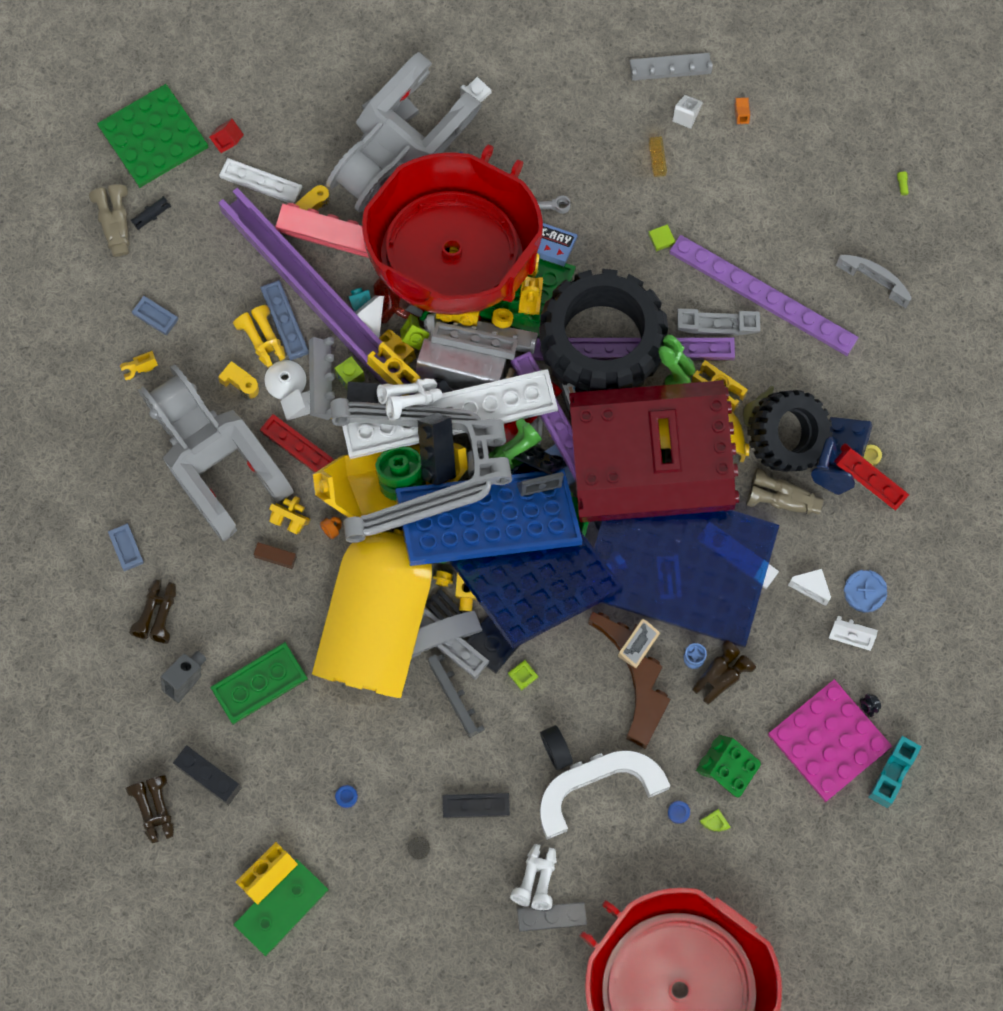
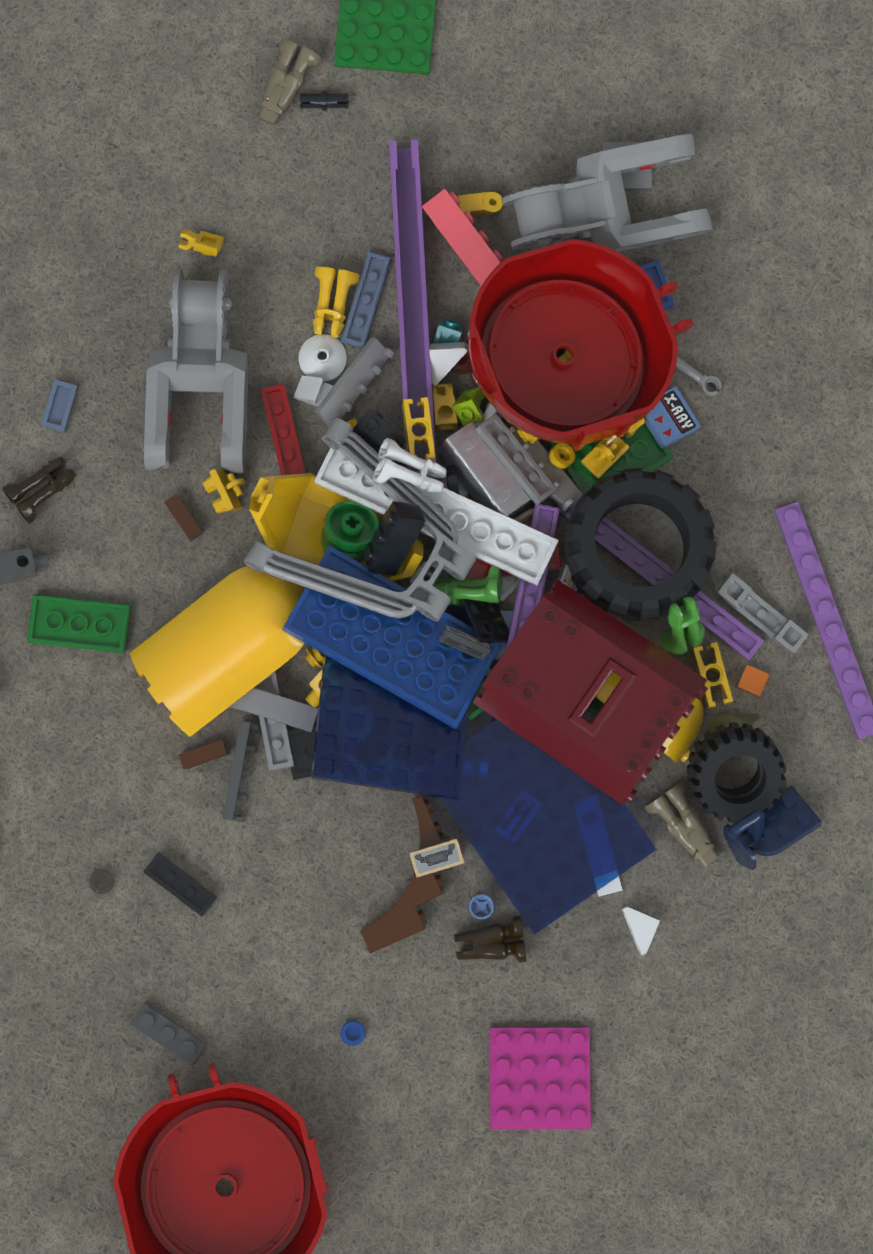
camera: 40 degrees right, 10 degrees up
(155, 315) = (252, 204): sand blue tile -> none
(226, 135) = (452, 76): red panel -> none
(240, 379) = (282, 337): yellow leg -> none
(260, 181) = (450, 146): white tile -> none
(329, 528) = (250, 534): orange tile -> none
(346, 796) = (76, 786): blue tile -> none
(349, 372) = (382, 399): lime brick -> none
(419, 704) = (203, 754): none -> reddish brown piece
(434, 598) = (293, 668): black tile -> none
(476, 89) = (720, 210): white bracket -> none
(523, 675) = (315, 801): lime tile -> none
(546, 866) = (157, 996): white piece -> none
(556, 747) = (289, 891): black tyre -> none
(599, 767) = (292, 931): white arch -> none
(657, 156) = (840, 408): clear yellow piece -> none
(661, 237) = (778, 490): lime tile -> none
(715, 822) = (378, 1067): lime tile -> none
(729, 765) = (430, 1028): green bracket -> none
(748, 370) = (752, 680): none -> orange tile
(853, 634) = (640, 1001): white plate -> none
(865, 591) = (687, 970): medium blue tile -> none
(870, 704) = (602, 1076): black plate -> none
(871, 477) = (775, 874): red hinge -> none
(873, 454) = (799, 851): light yellow tile -> none
(894, 771) = (571, 1153): teal arch -> none

